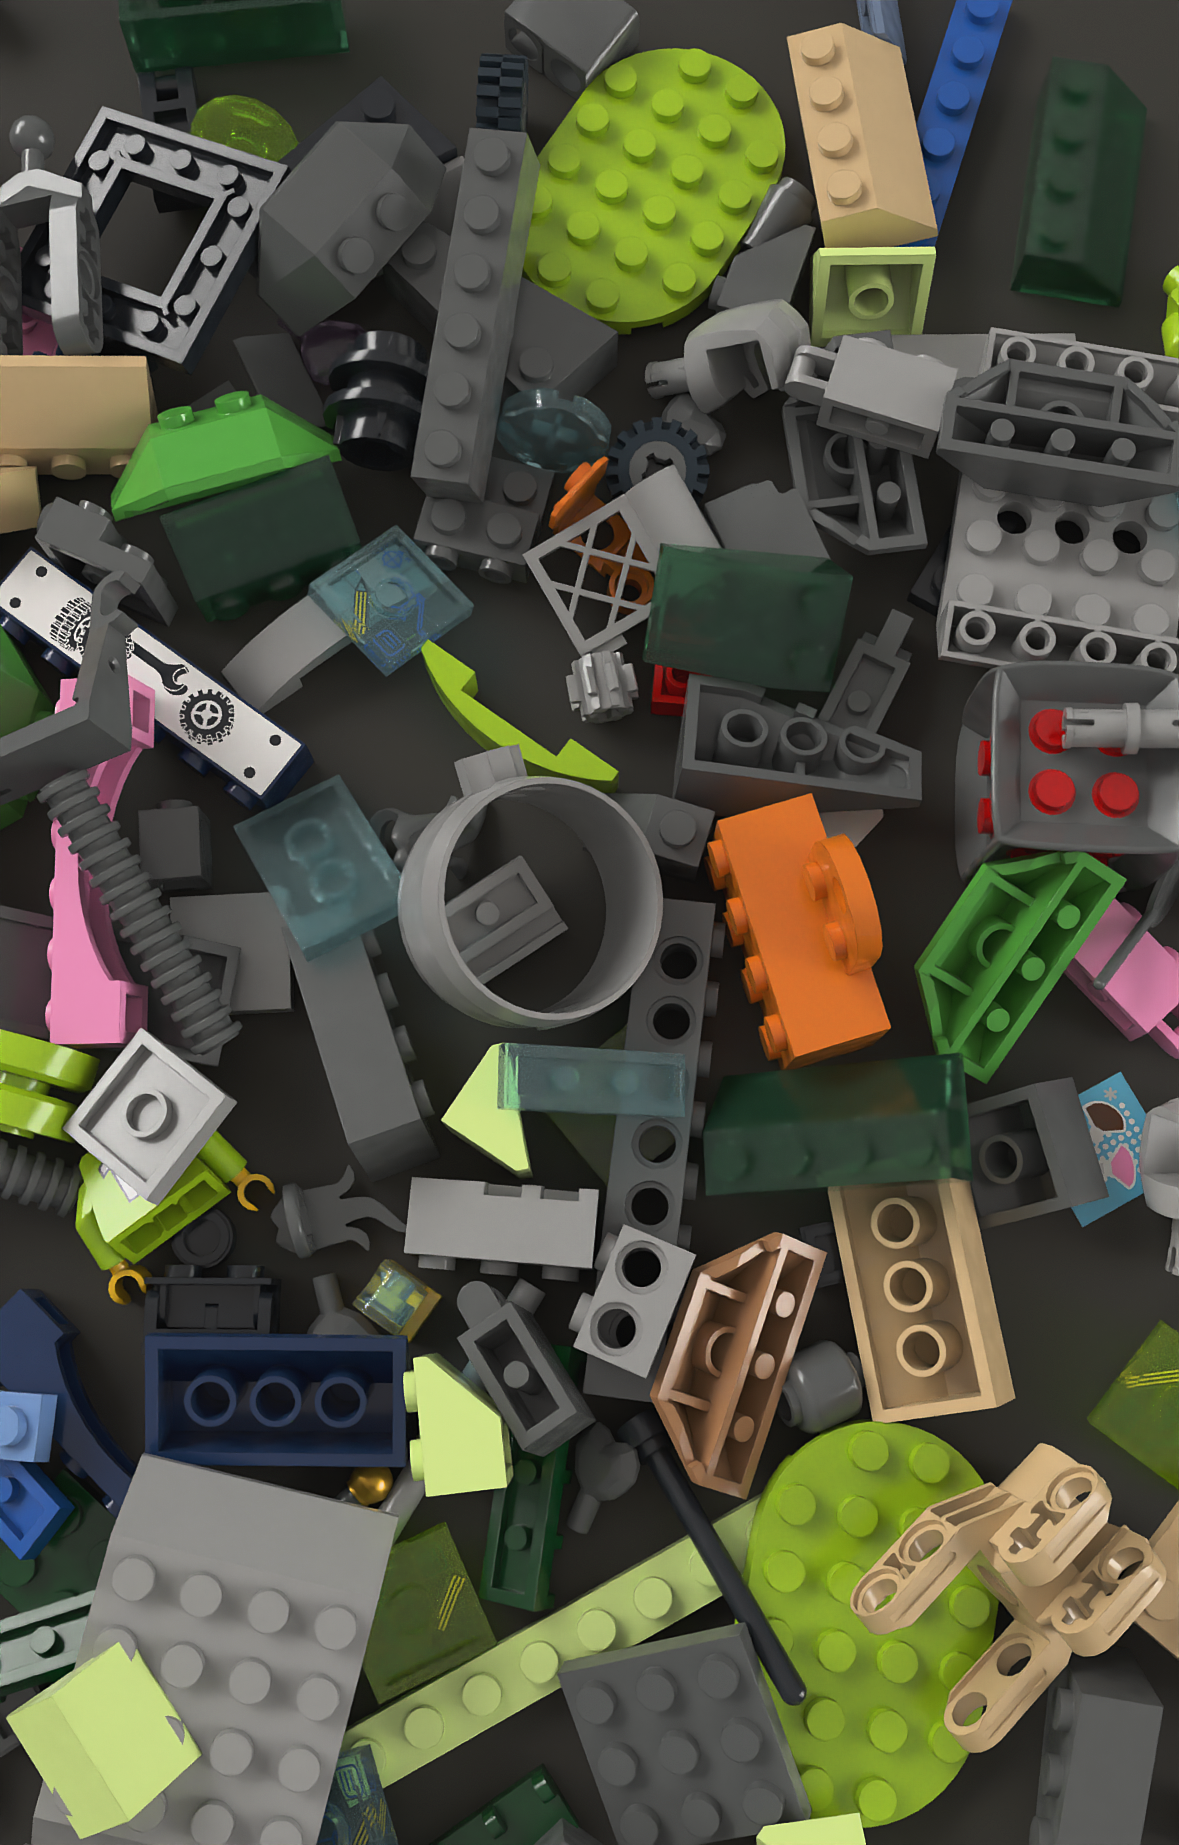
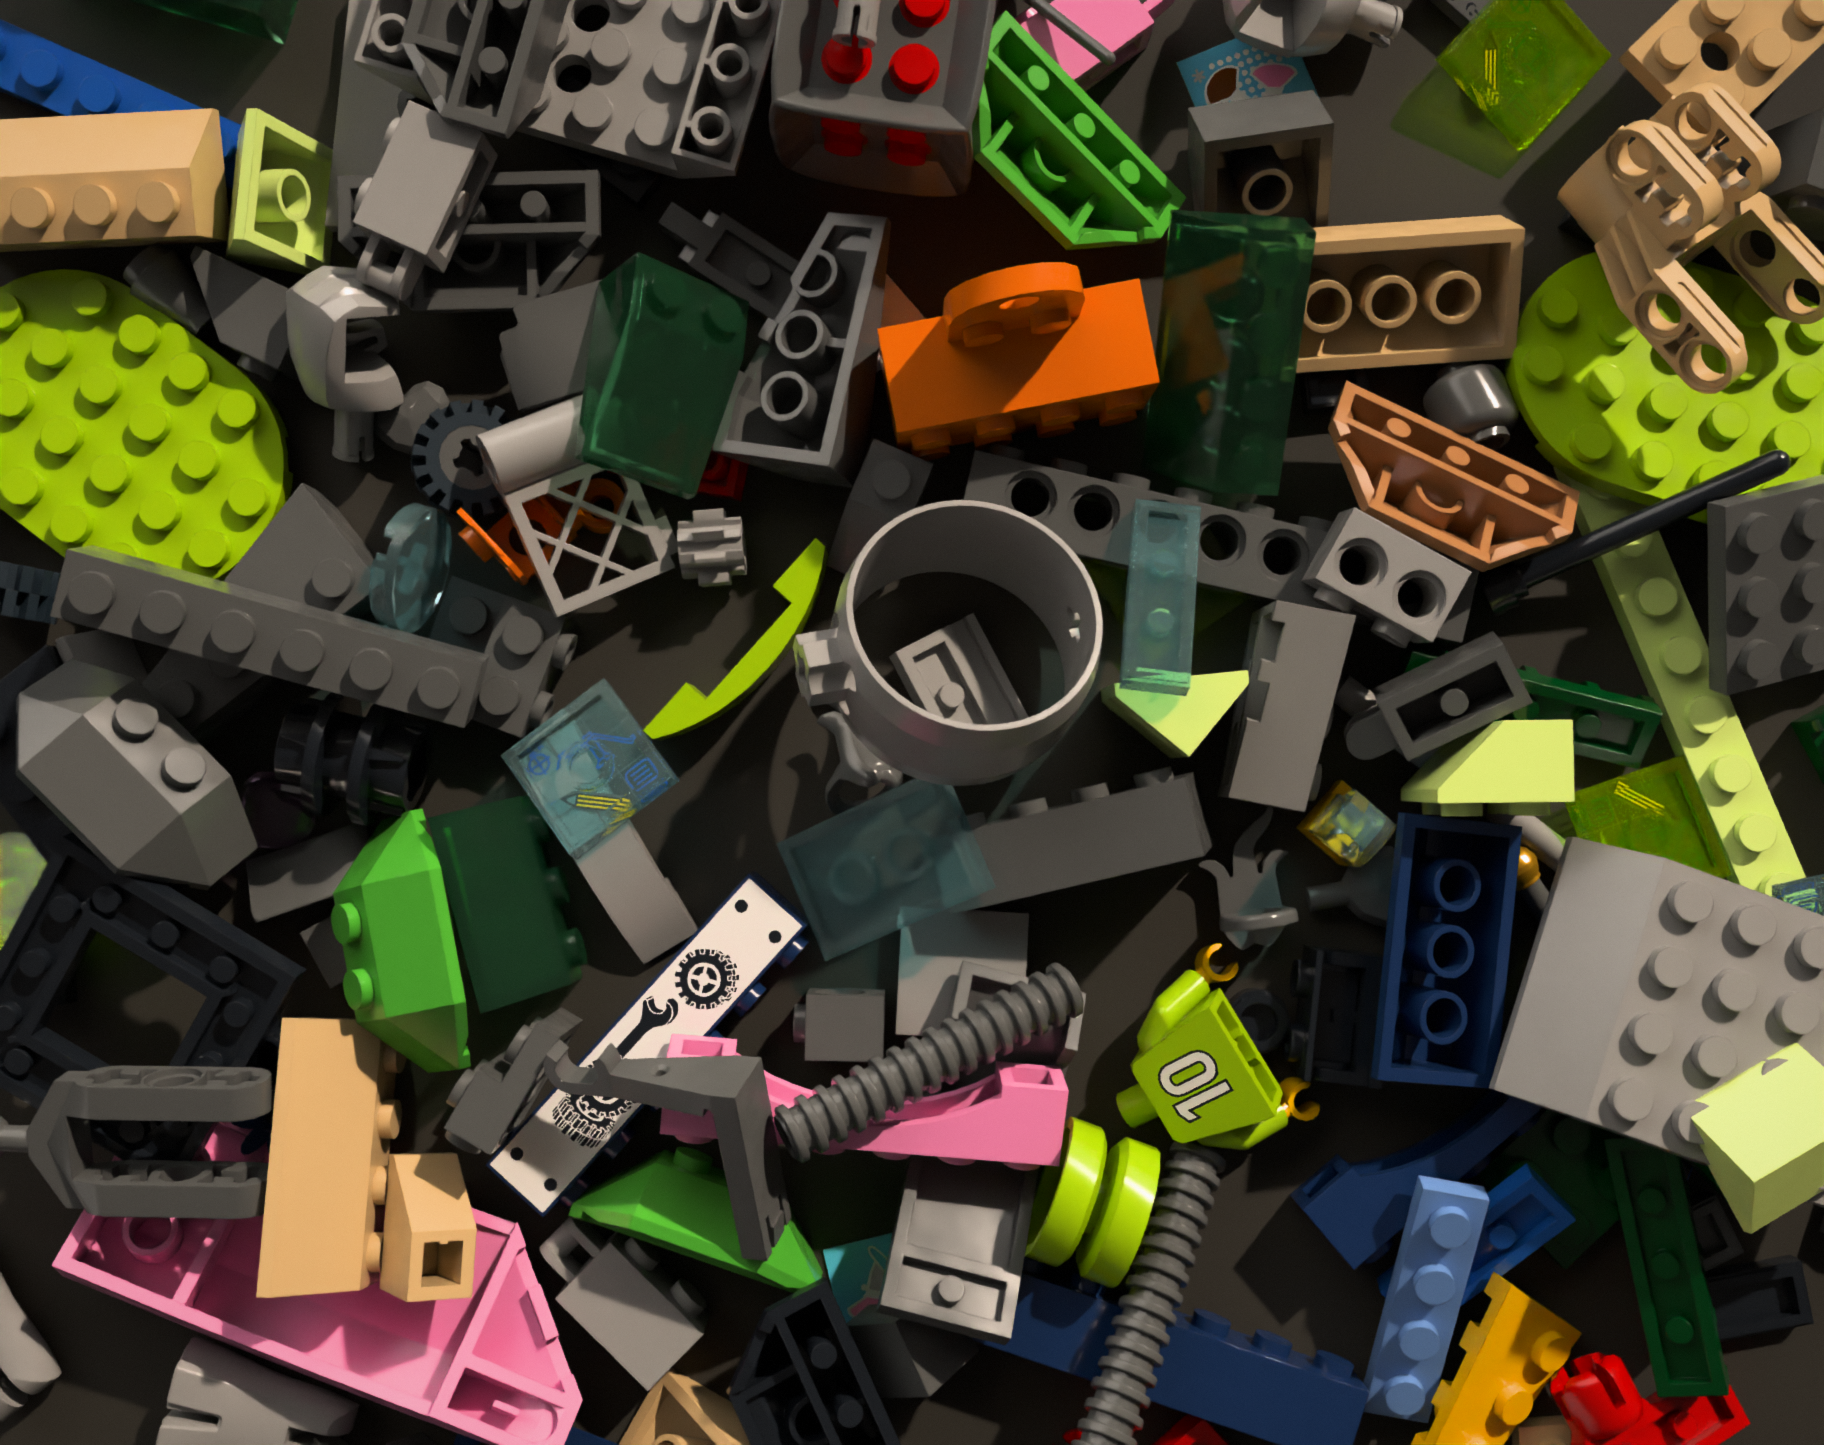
camera: 85 degrees left, 10 degrees up
(149, 1116) = (1148, 1063): plate -> none
(603, 1471) = (1534, 633): dark grey rock -> none

